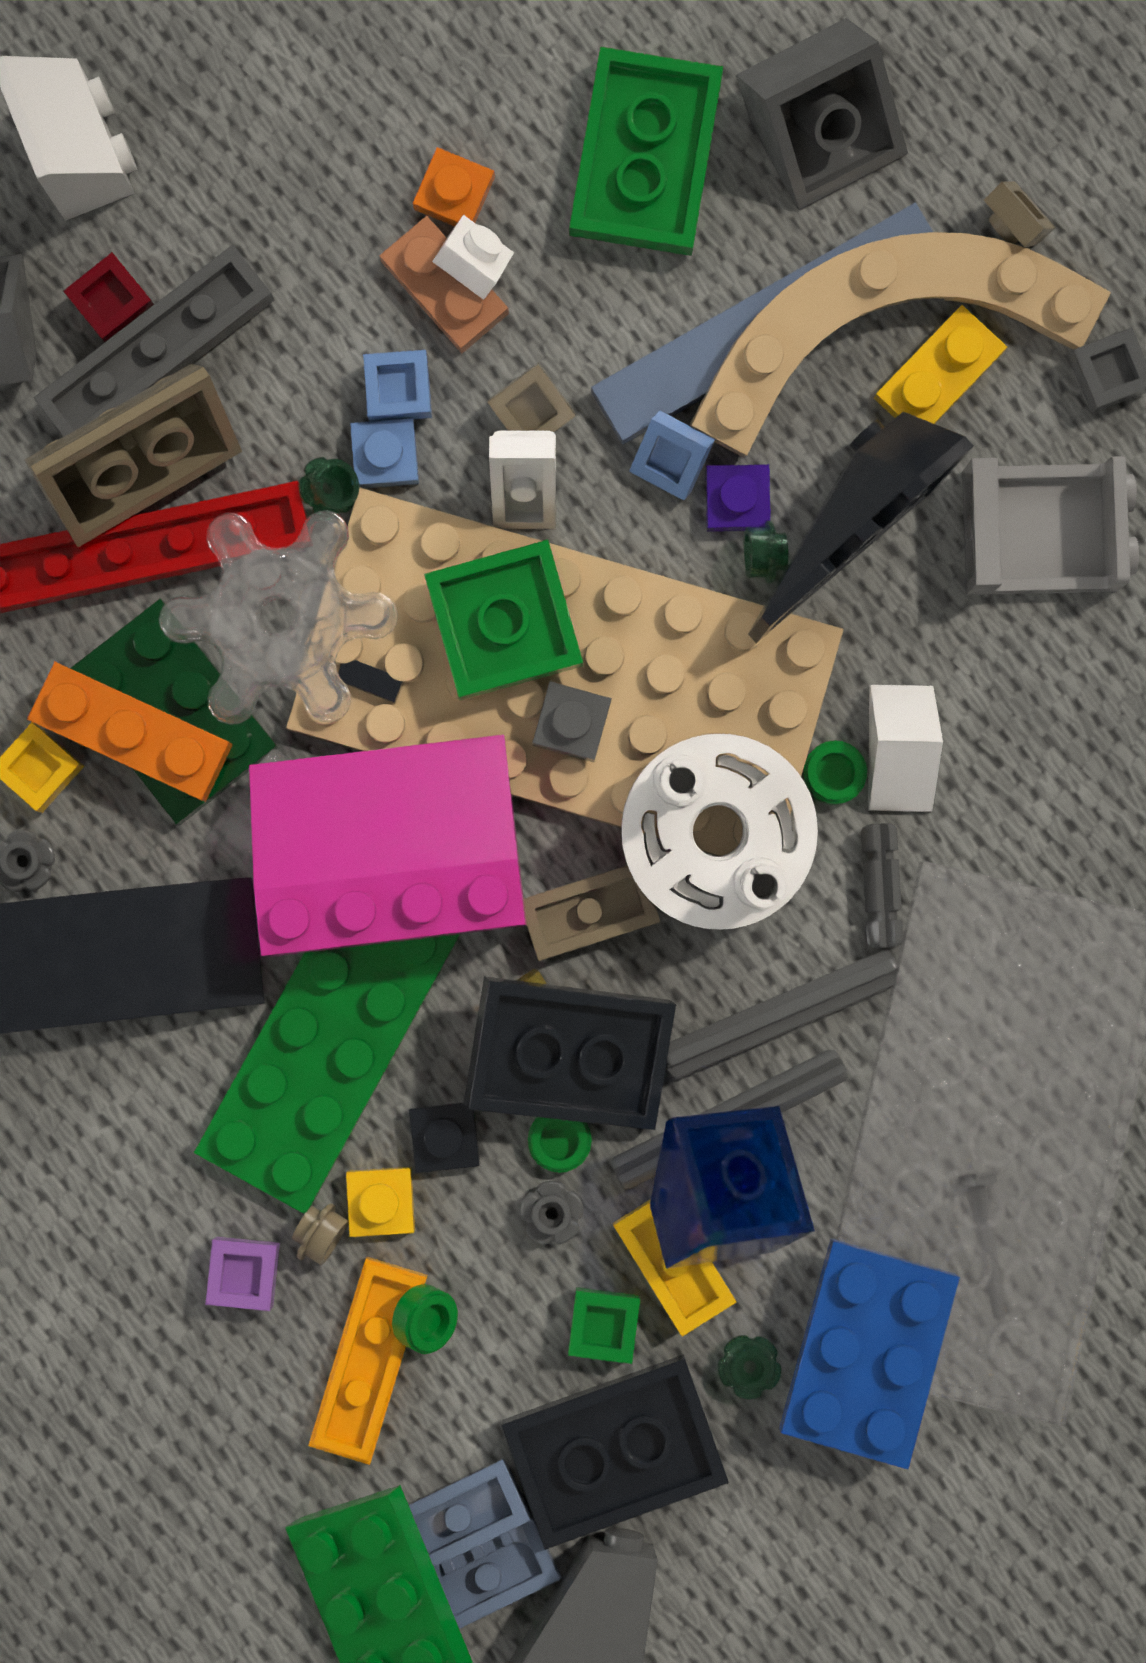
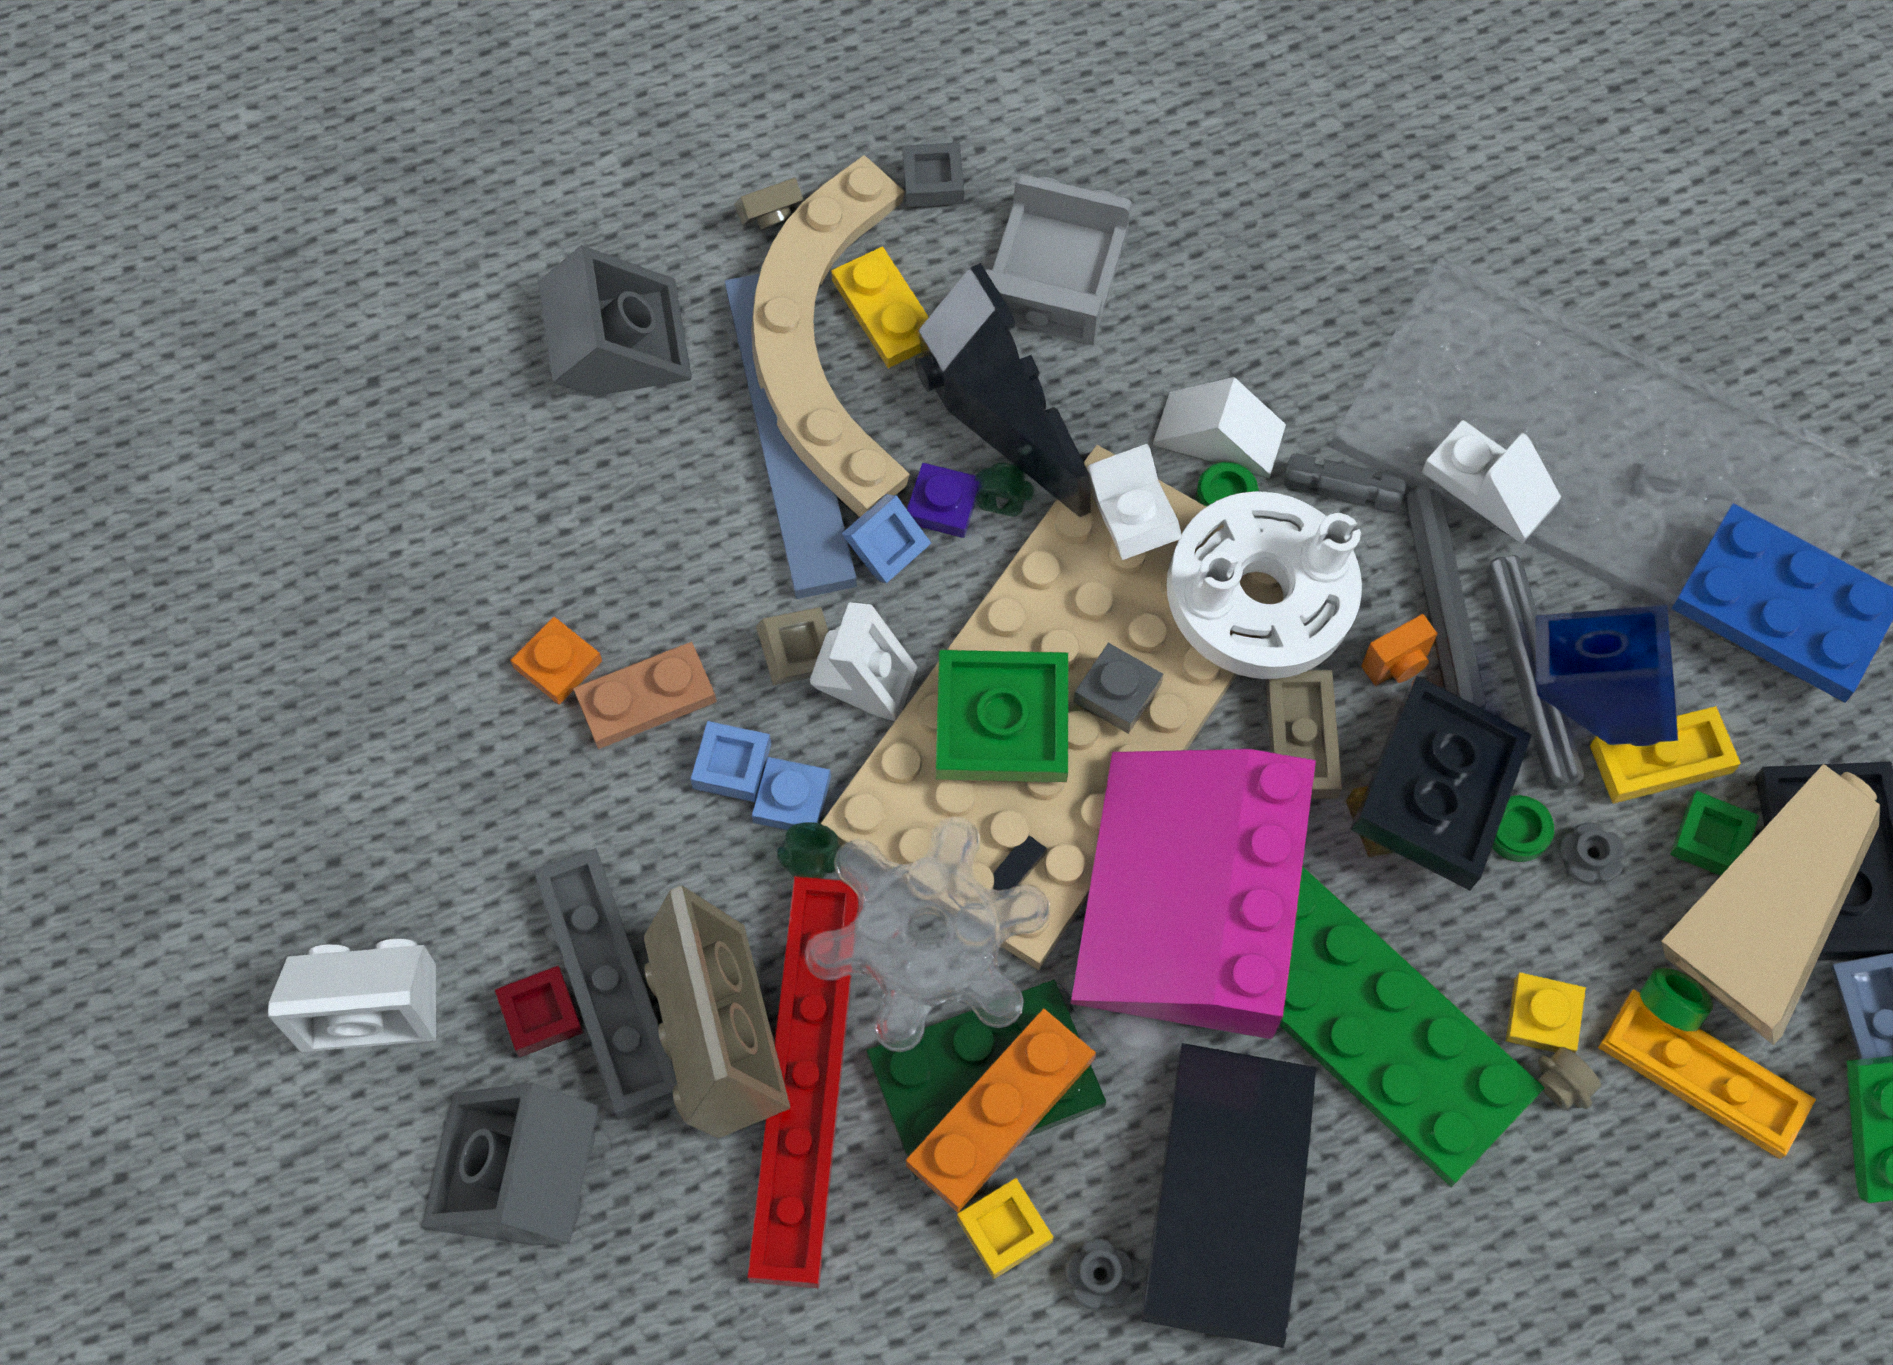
camera: 75 degrees left, 20 degrees down
(242, 1273) = (1593, 1168): medium lavender plate -> none
(444, 1137) = (1493, 934): black plate -> none
(473, 256) = (632, 651): white plate -> none
(526, 1393) = (1774, 906): none -> tan slope
(645, 151) = (589, 482): green plate -> none
(700, 984) = (1400, 652): none -> orange plate
(744, 1349) = (1770, 731): clear green plate -> none
(763, 677) = (1133, 502): none -> white slope
(915, 1031) = (1498, 483): none -> white slope

